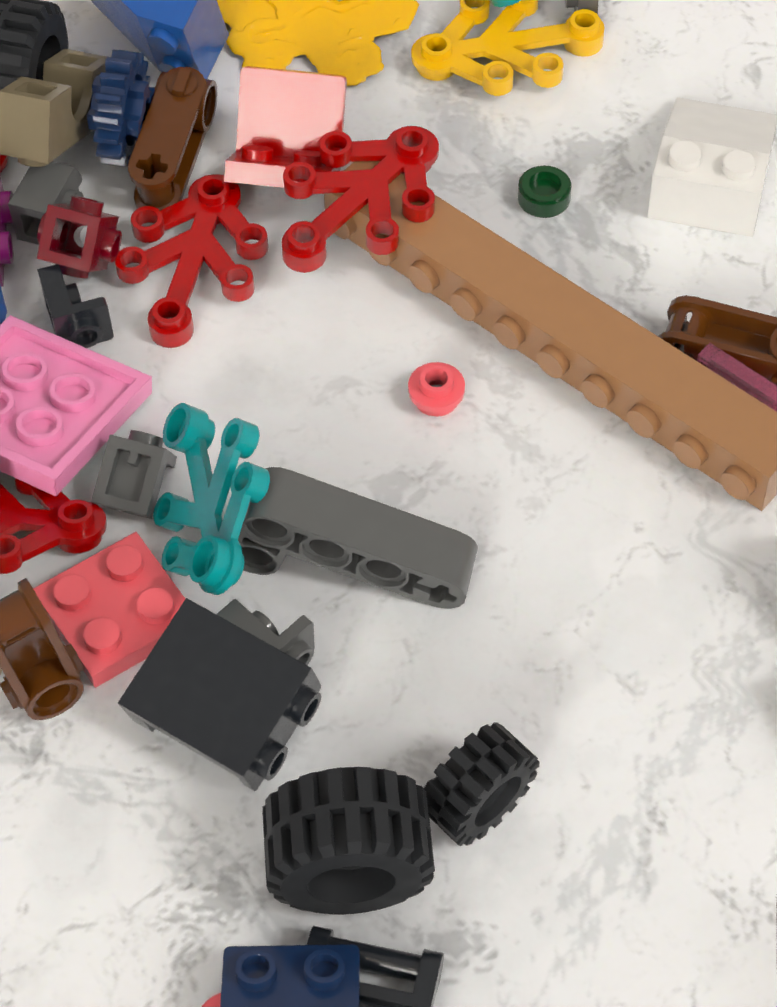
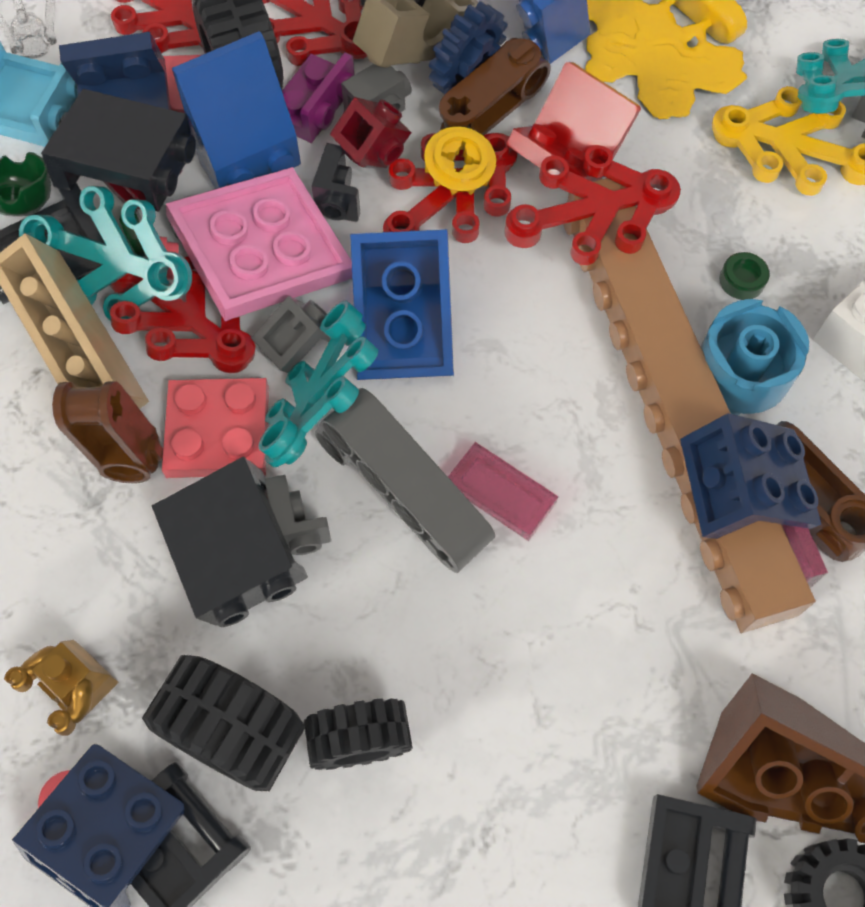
camera: 30 degrees right, 10 degrees up
(144, 916) = (67, 677): none -> pearl gold piece
(201, 205) = (477, 154): none -> yellow gear
(230, 369) = (404, 302): none -> blue slope
(436, 400) = (551, 400): coral plate -> none
(467, 505) = (503, 491): none -> clear pink tile
(609, 250) = (755, 354): none -> dark azure brick
(675, 356) = (747, 475): none -> dark blue bracket

